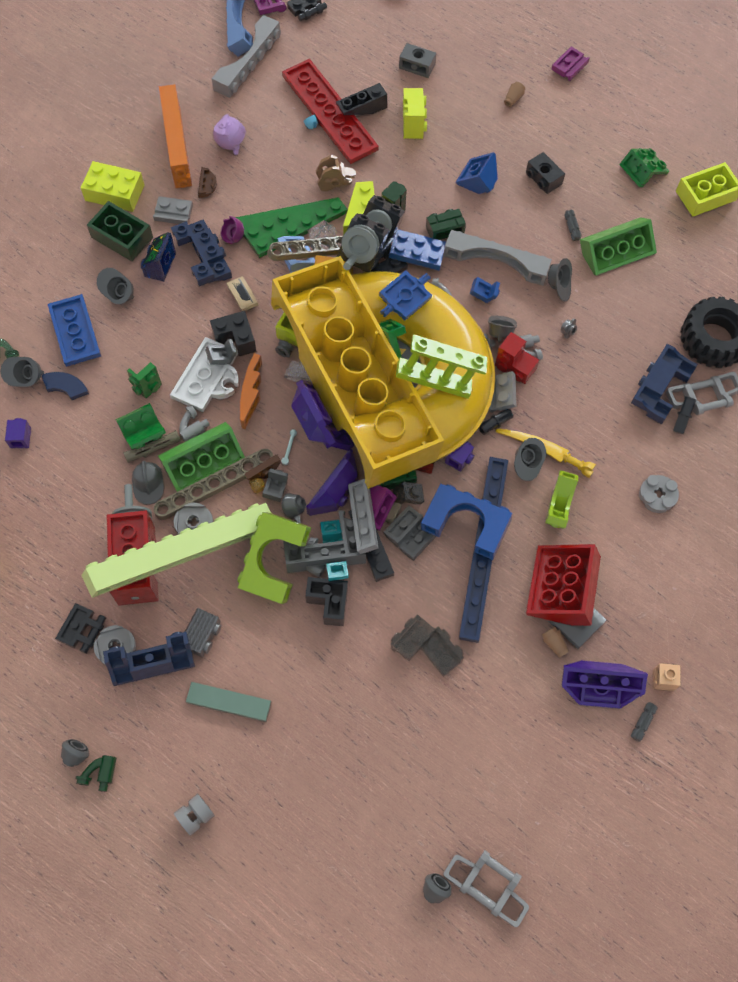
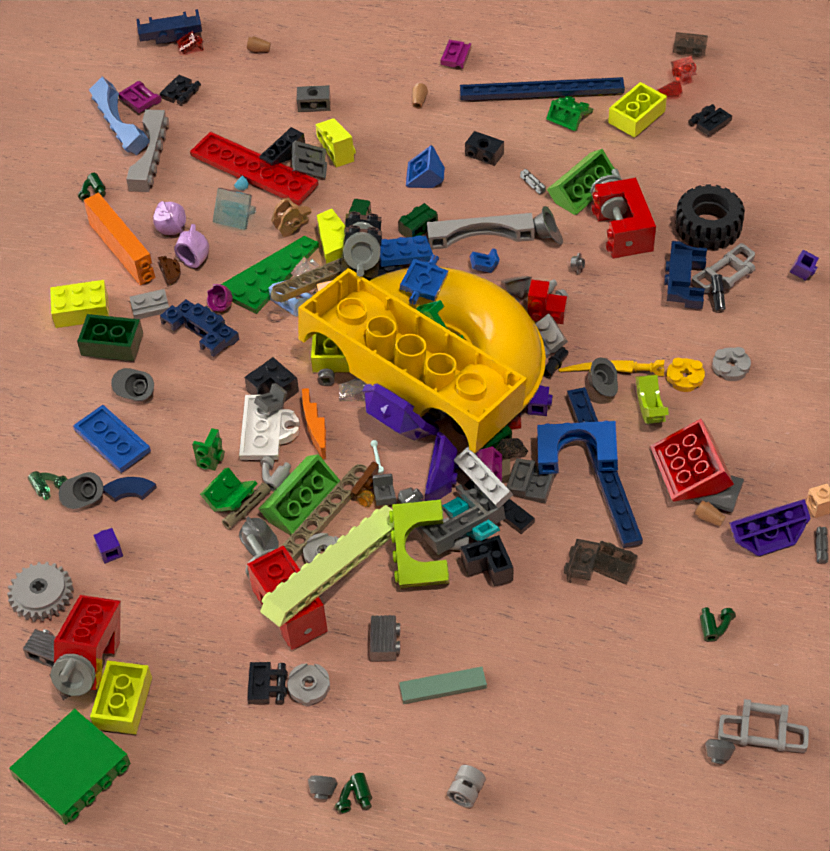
camera: 20 degrees left, 15 degrees down
(149, 662) = (351, 680): dark blue bracket -> none
(159, 257) = (161, 345): clear blue slope -> none
(187, 70) = (95, 182): none -> dark green plant
(233, 170) = (192, 247): none -> lavender helmet
(242, 293) = (261, 348): tan slope -> none
(288, 145) = (233, 208): none -> clear light blue bracket
(380, 122) = (309, 159): none -> dark grey slope
(436, 378) = (492, 333): lime fence -> none
(494, 755) = (710, 630): none -> dark green plant
(613, 476) = (689, 366): none -> yellow plate
(632, 131) = (542, 88): none -> dark blue plate
(639, 276) = (623, 200): none -> red piece

